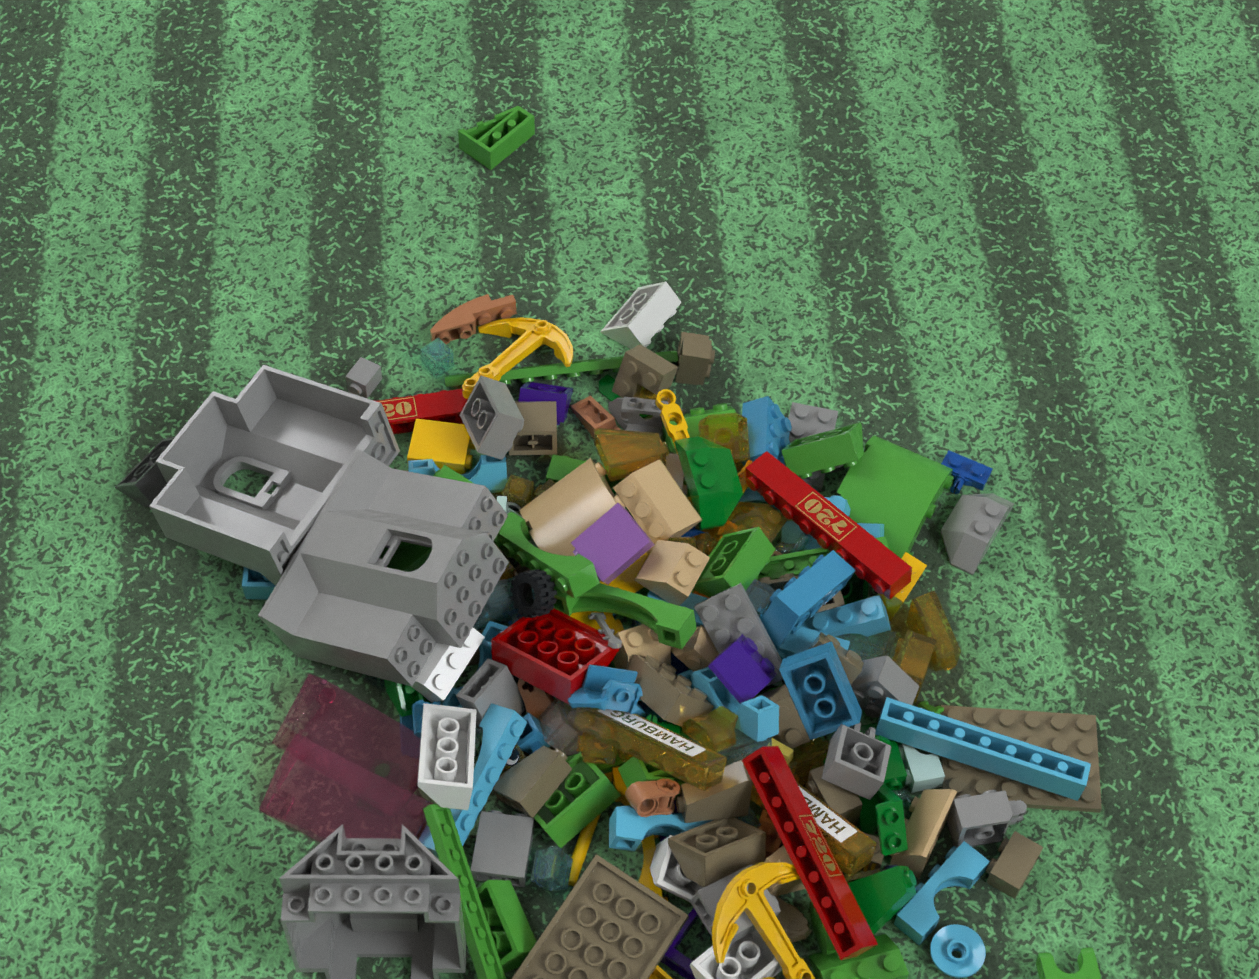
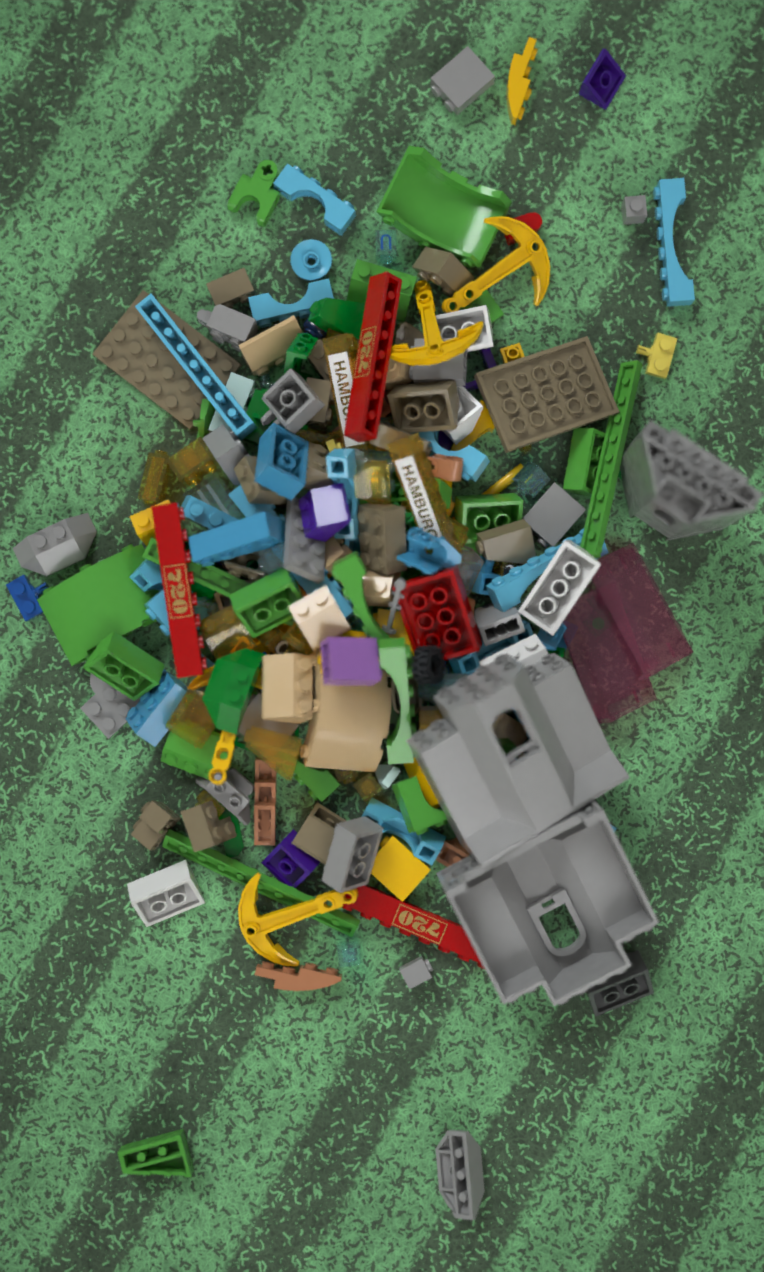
camera: 145 degrees left, 30 degrees up
(214, 254) = (460, 1173): none -> light grey wedge

